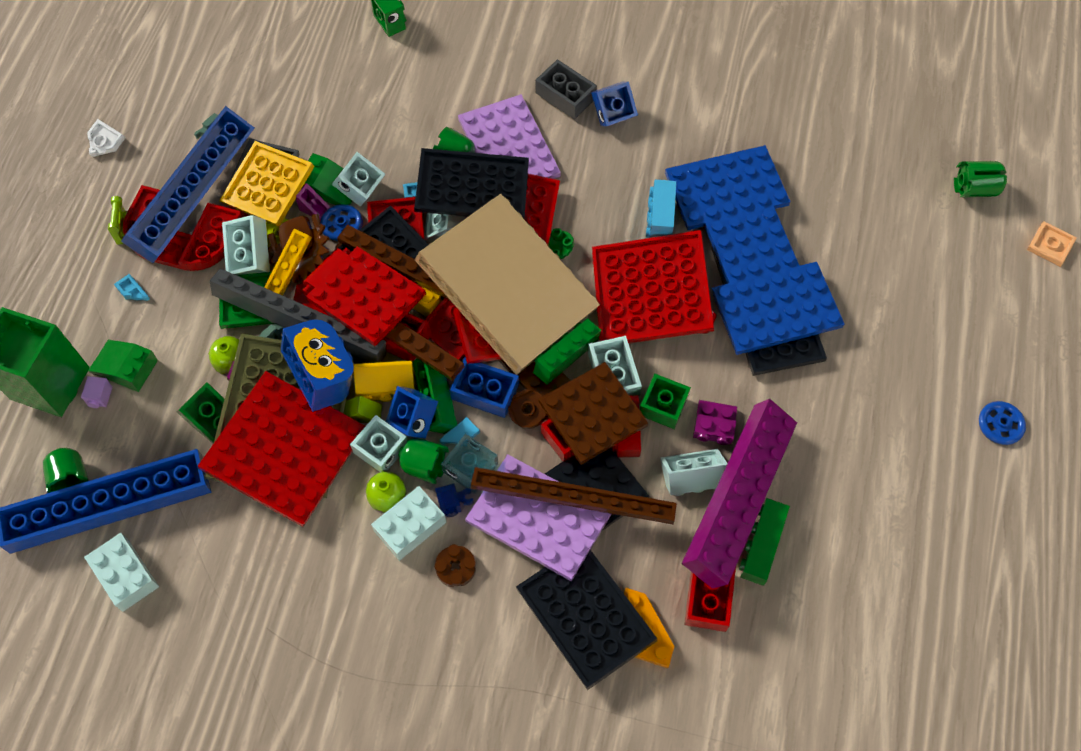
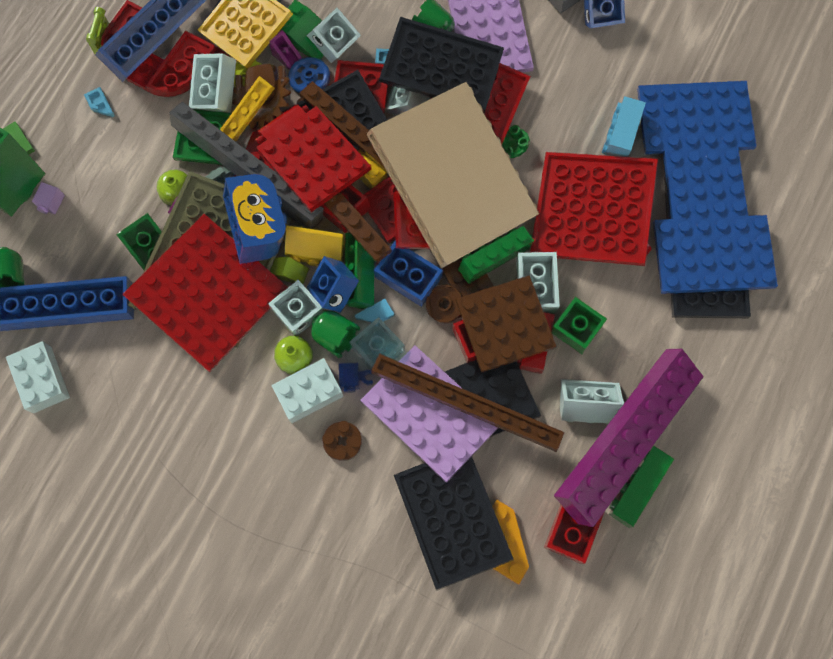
camera: 15 degrees right, 10 degrees up
(124, 364) = (78, 176): green slope -> none
(715, 422) = (623, 356): magenta plate -> none

